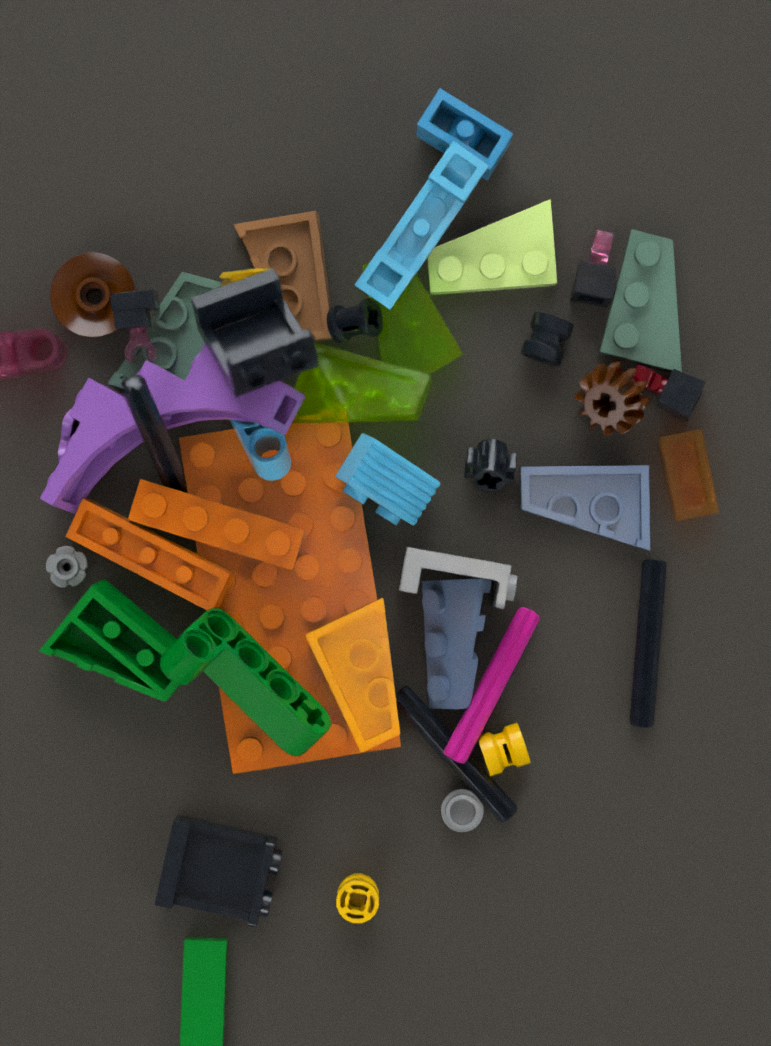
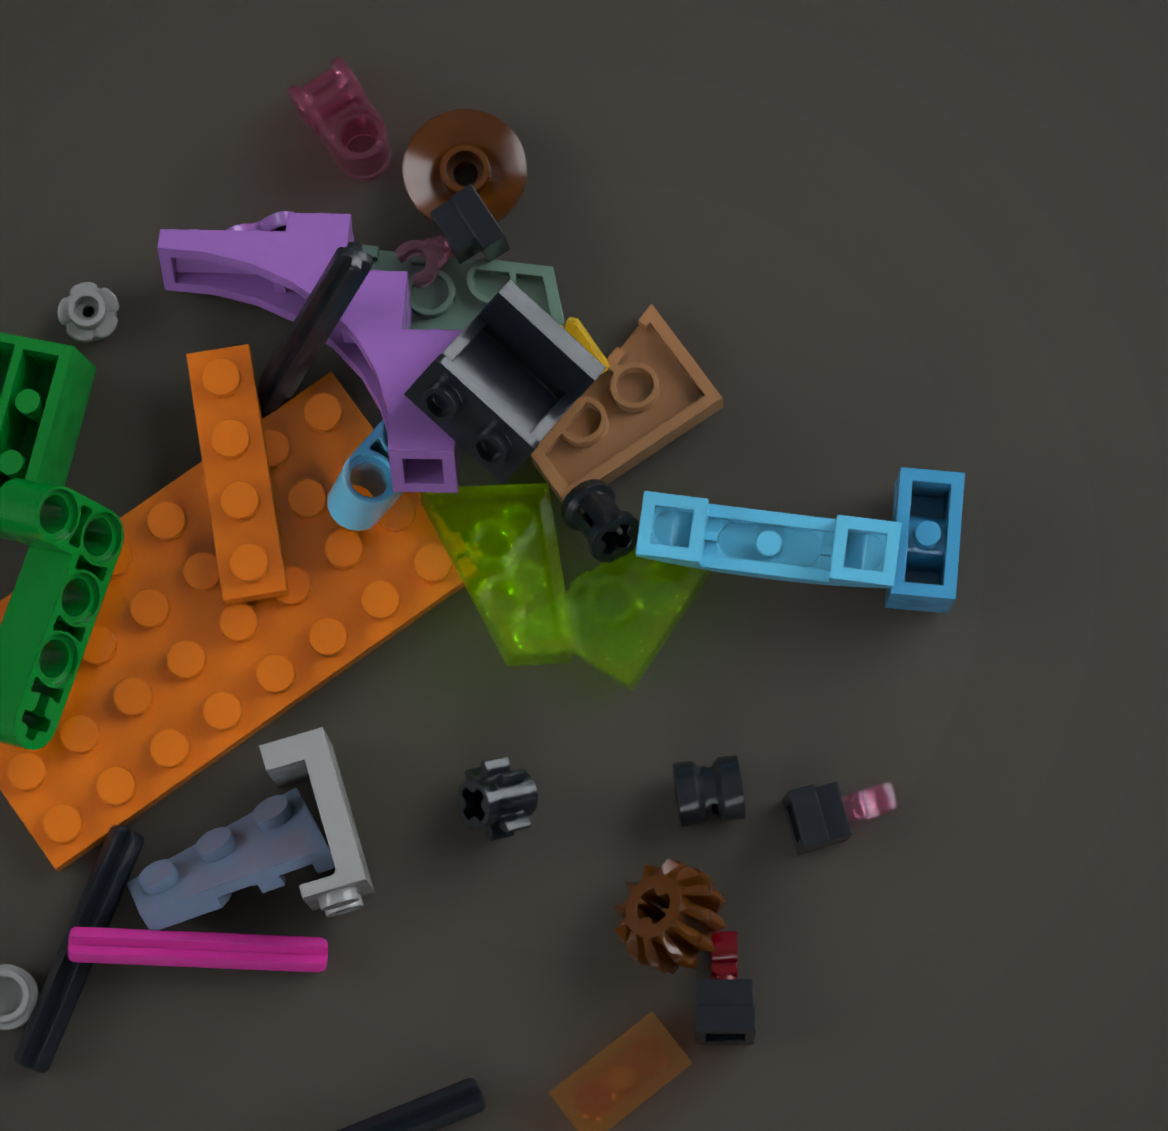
camera: 70 degrees right, 10 degrees down
(149, 555) = (154, 408): orange plate -> none
(360, 673) = (127, 757): light orange wing -> none
(386, 479) = (406, 667): medium azure brick -> none
(493, 751) = (116, 1010): yellow wheel -> none
(498, 256) = (790, 672): yellowish green wing -> none
(592, 498) = (522, 962): sand blue wing -> none
(644, 308) = (821, 903): sand green wing -> none

